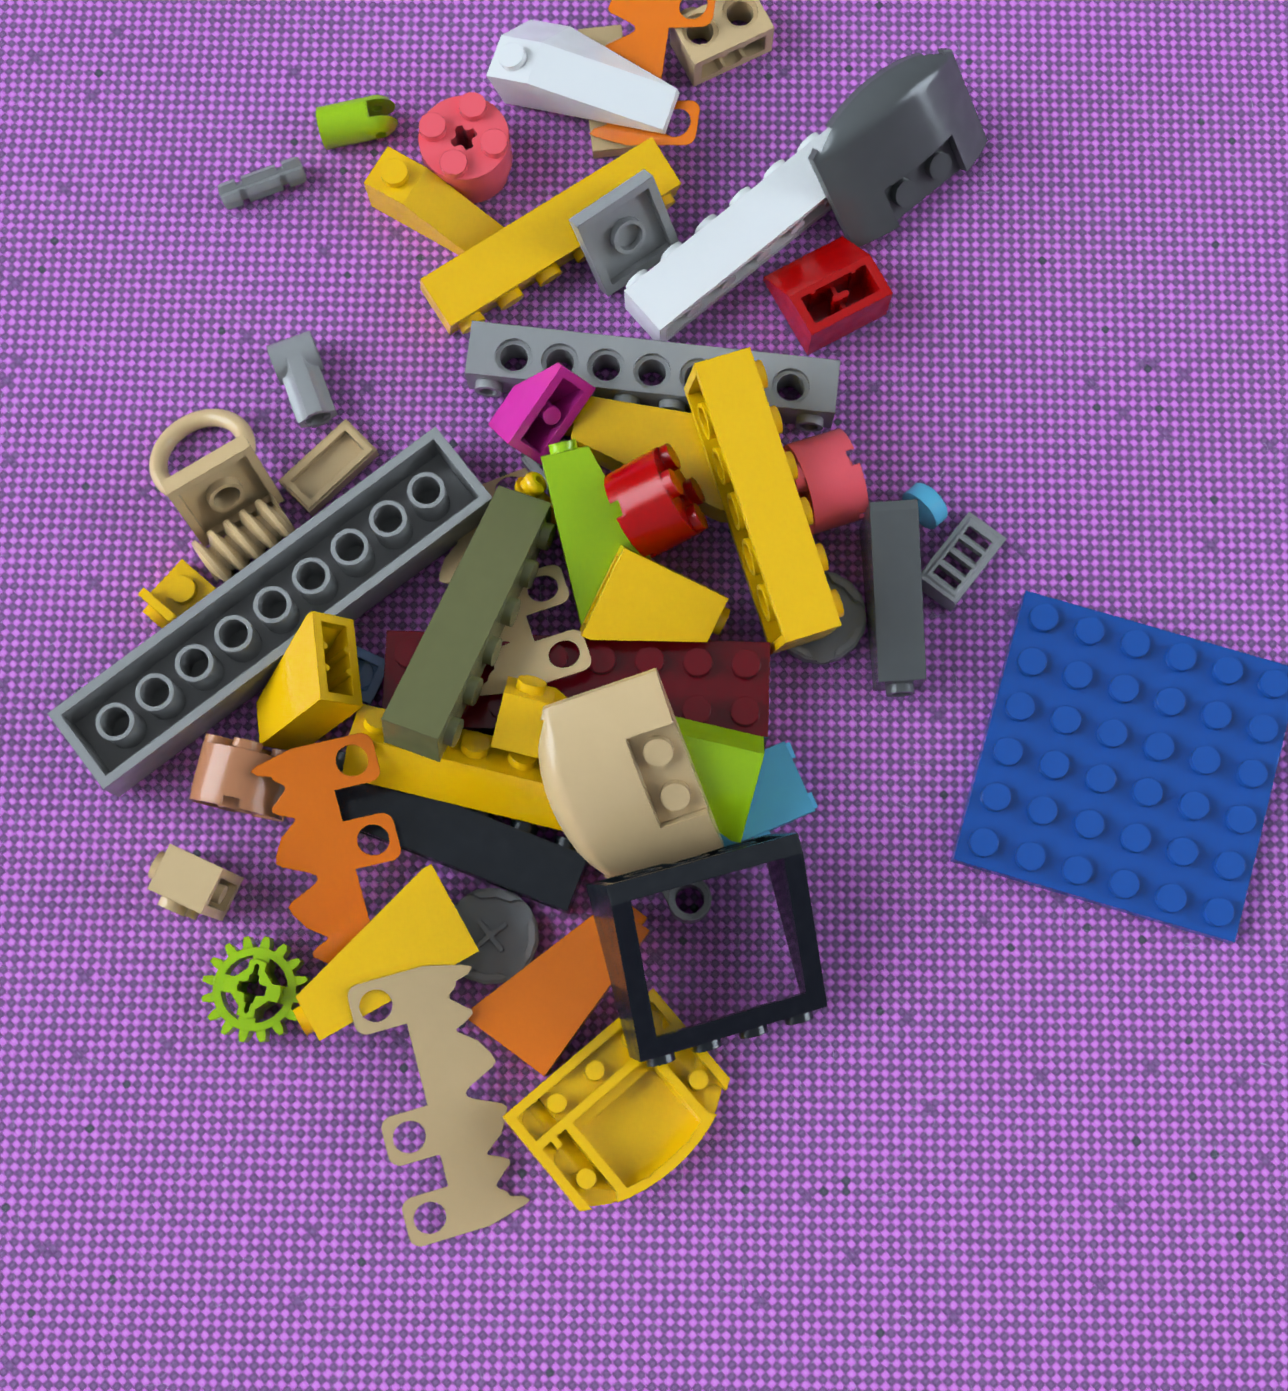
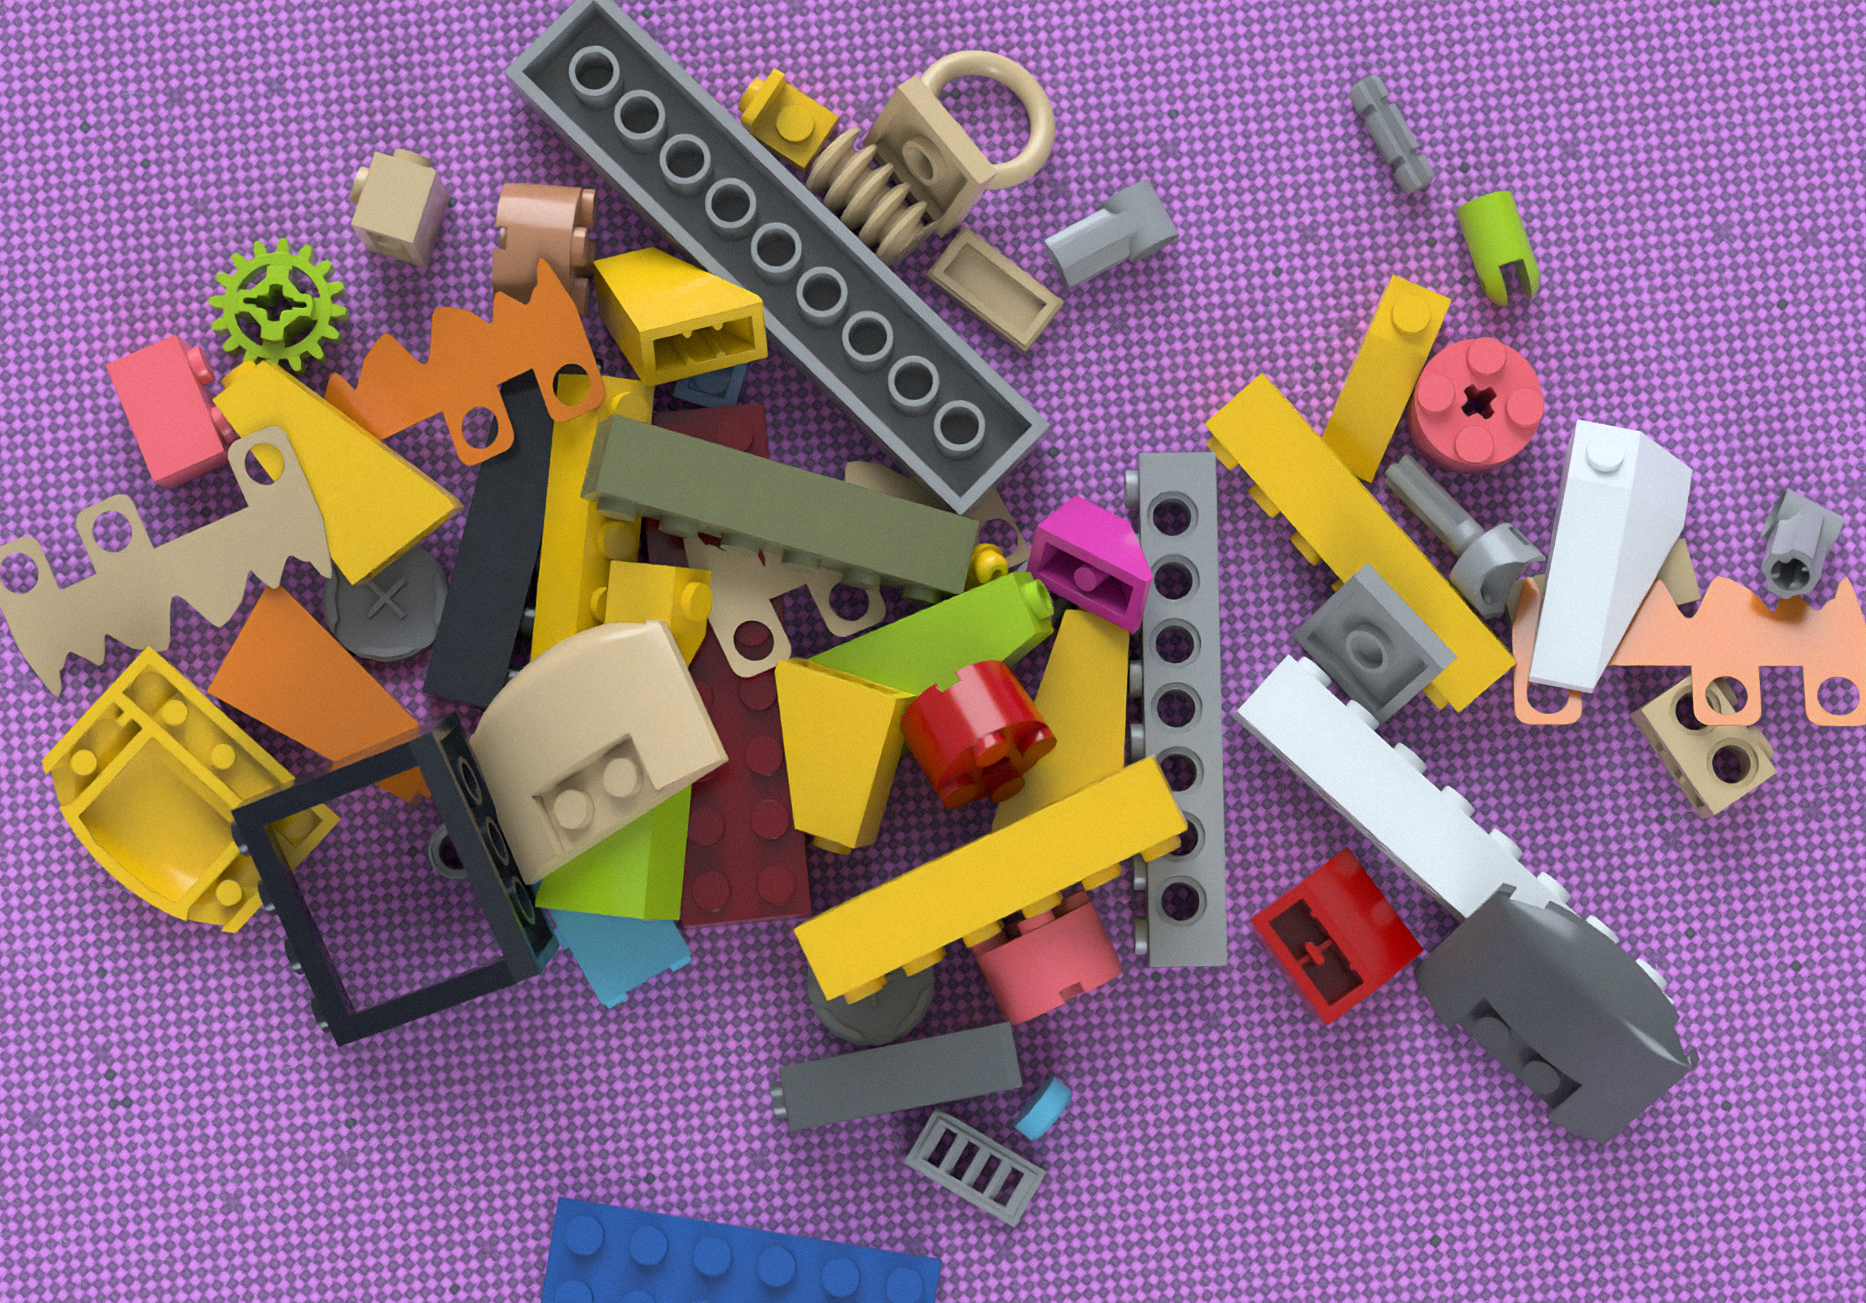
camera: 75 degrees right, 5 degrees up
(323, 1079) = (173, 410): none -> coral brick
(574, 152) = (1487, 560): none -> light grey piece

